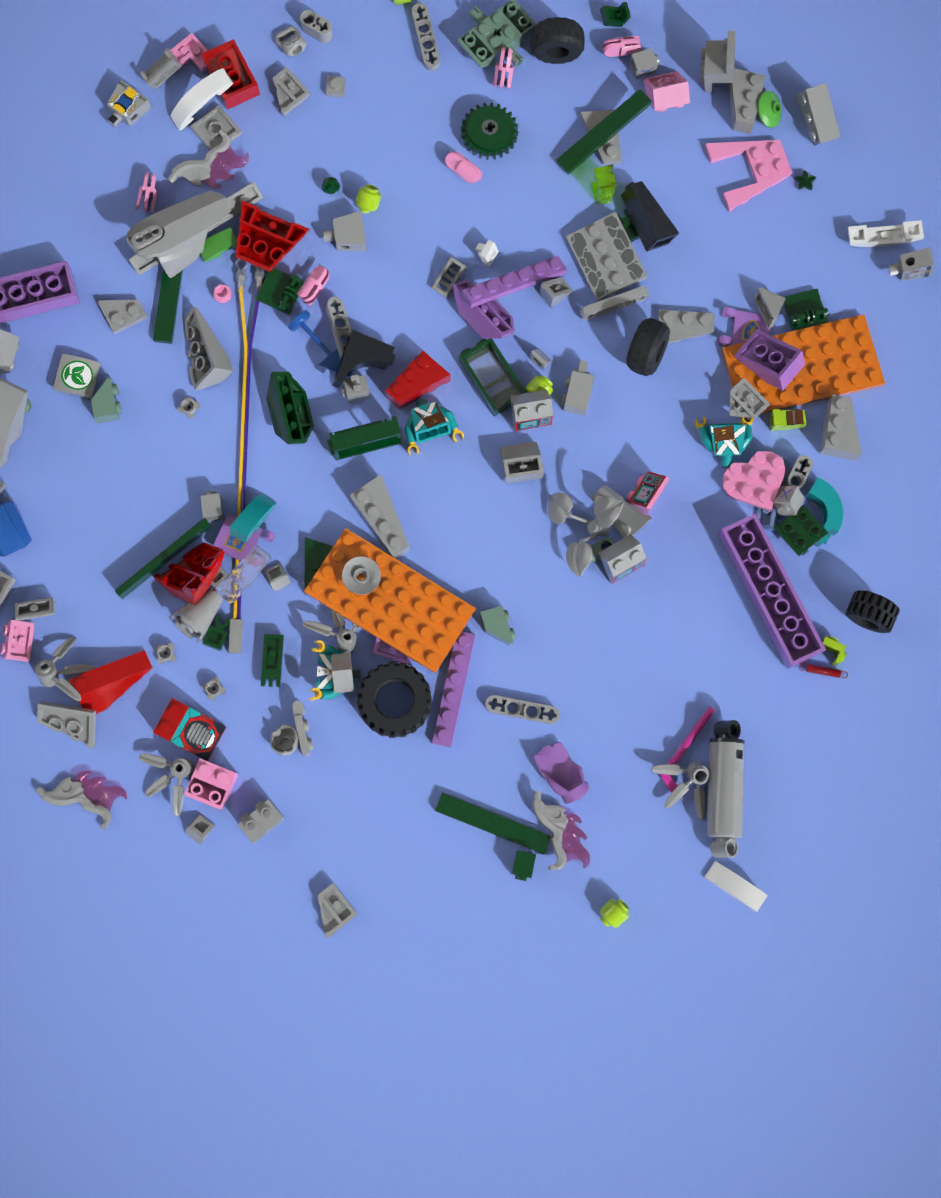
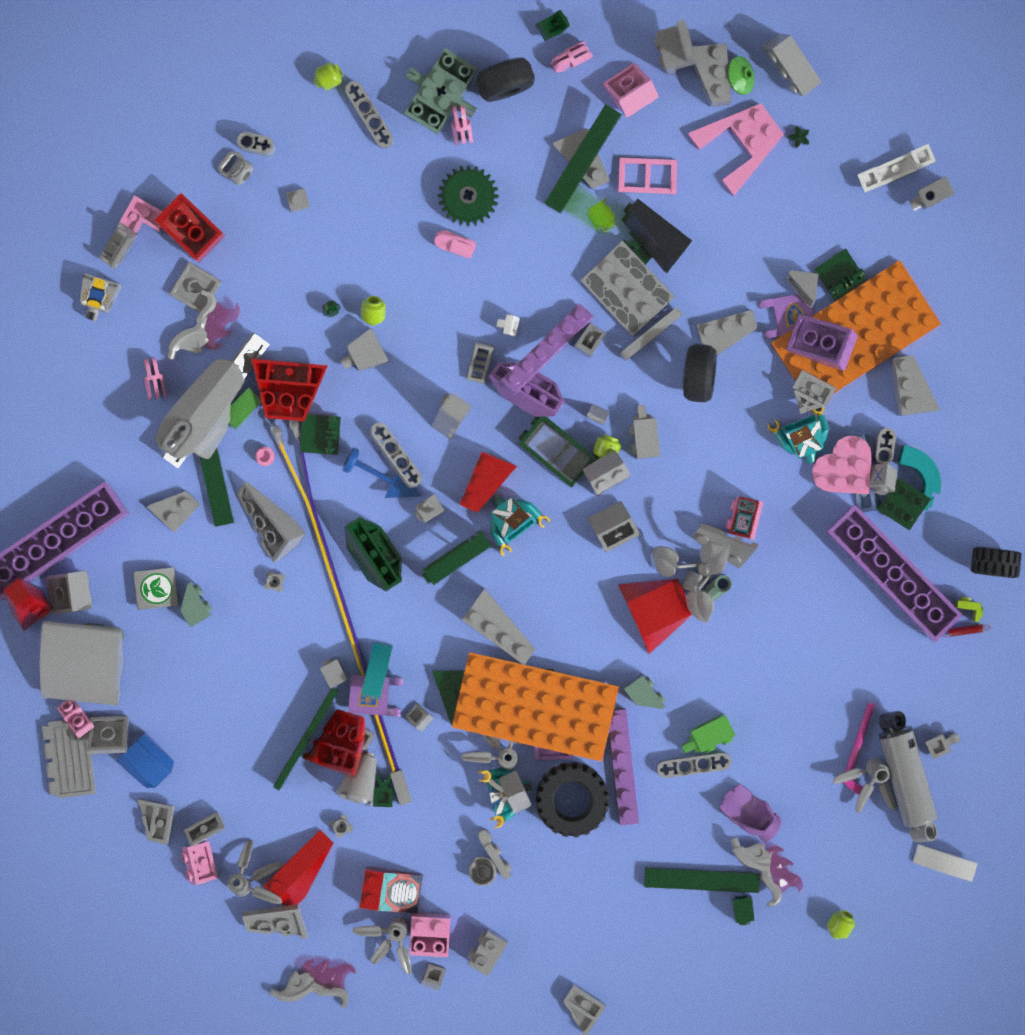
camera: 15 degrees left, 10 degrees up
(198, 96) = (170, 264): white slope -> none
(215, 682) = (393, 844): light grey plate -> none
(243, 574) = (388, 729): clear slope -> none
(272, 659) = (443, 798): dark green hinge -> none
(289, 91) = (253, 222): light grey wing -> none
(313, 285) = (351, 417): bright pink arm -> none
(359, 566) = (501, 707): light grey dish -> none
(362, 352) = (420, 473): black arch -> none
(407, 307) = (450, 415): none -> light grey wedge
(535, 552) = (656, 608): none -> red wedge
(547, 685) = (709, 735): none -> bright green hinge
(577, 535) = (691, 581): none -> light grey slope
(622, 558) = (741, 590): light grey slope -> none
(644, 63) = (599, 68): light grey brick -> none
(661, 157) = (672, 190): none -> bright pink window
(765, 771) = (939, 745): none -> light grey plate
(787, 419) = (857, 394): lime leg -> none

